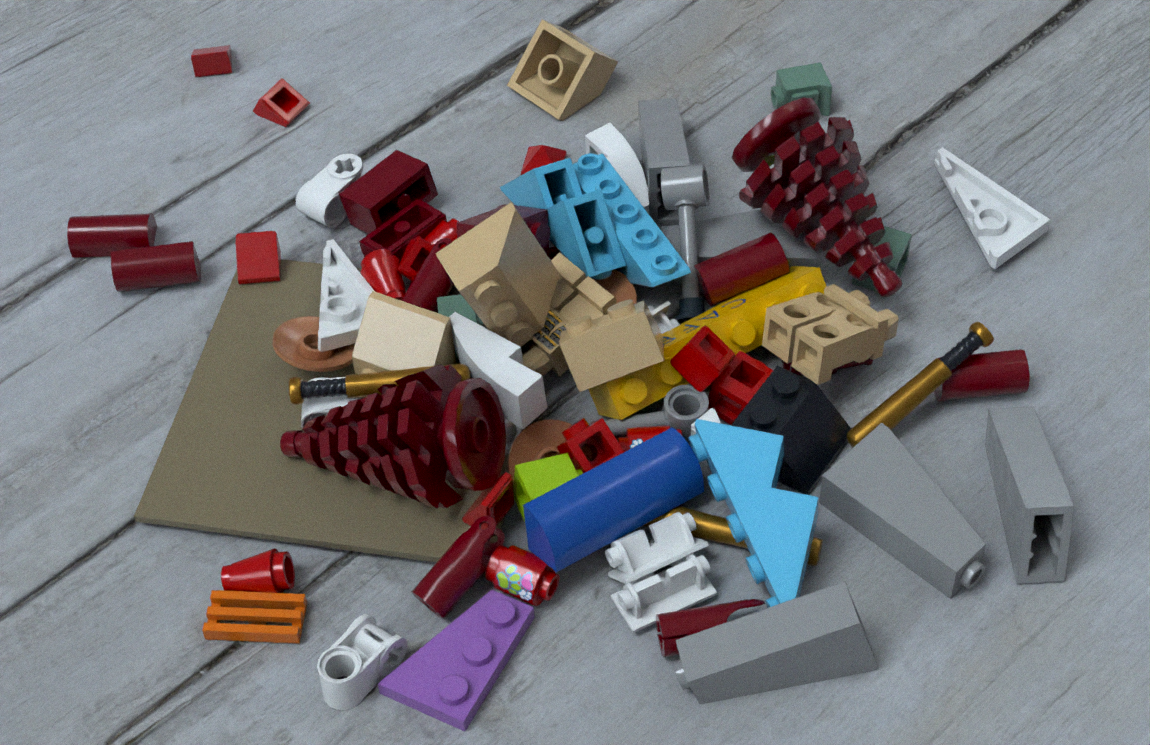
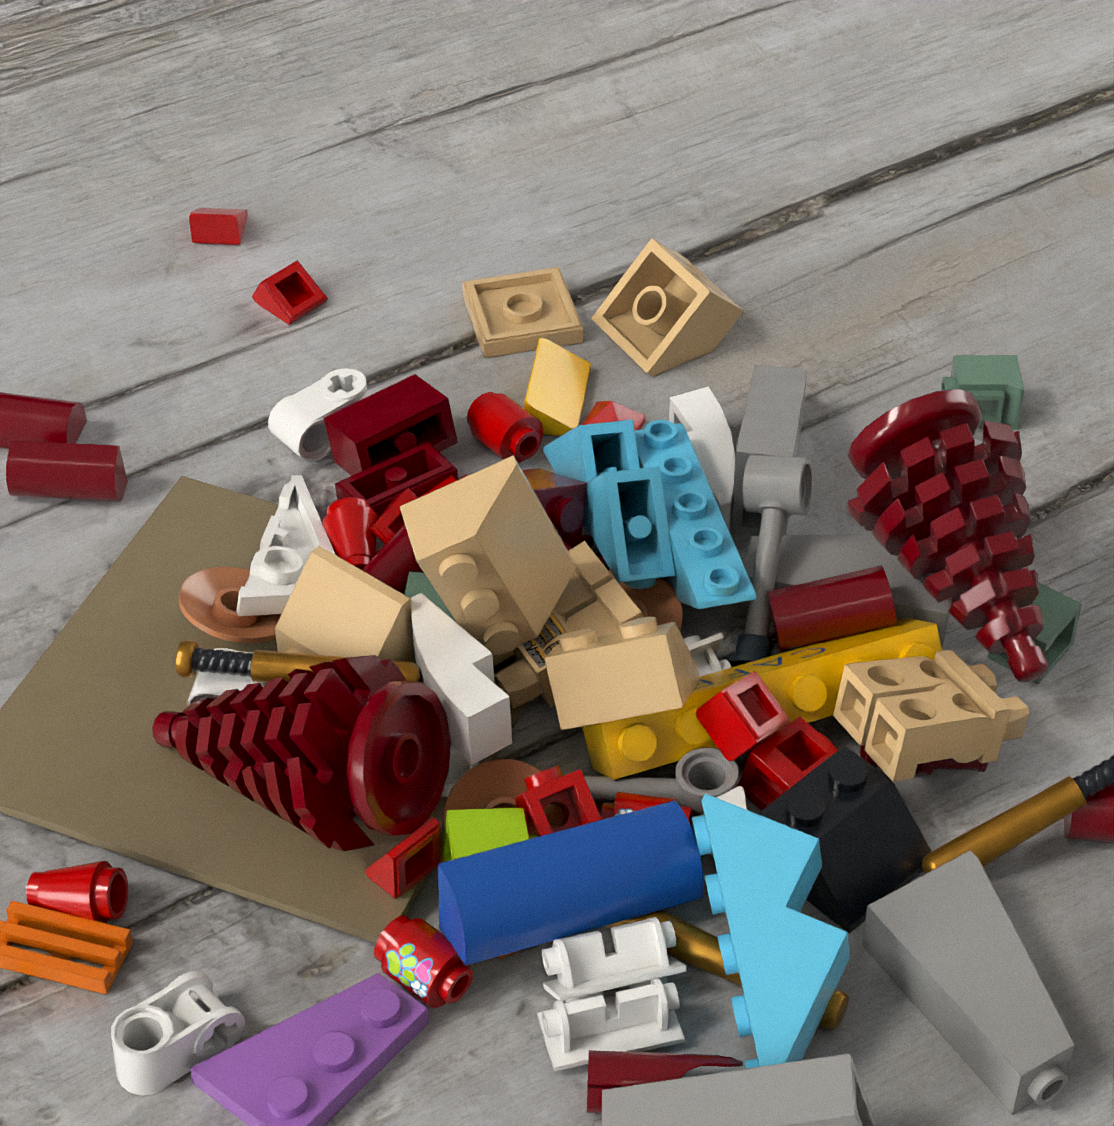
camera: 10 degrees right, 5 degrees down
(258, 257) = (198, 481): red slope -> none
(456, 89) = (520, 309): none -> tan tile
(458, 568) = (340, 933): dark red piece -> none
(469, 177) = (504, 426): none -> red brick
(498, 144) = (557, 388): none -> yellow slope

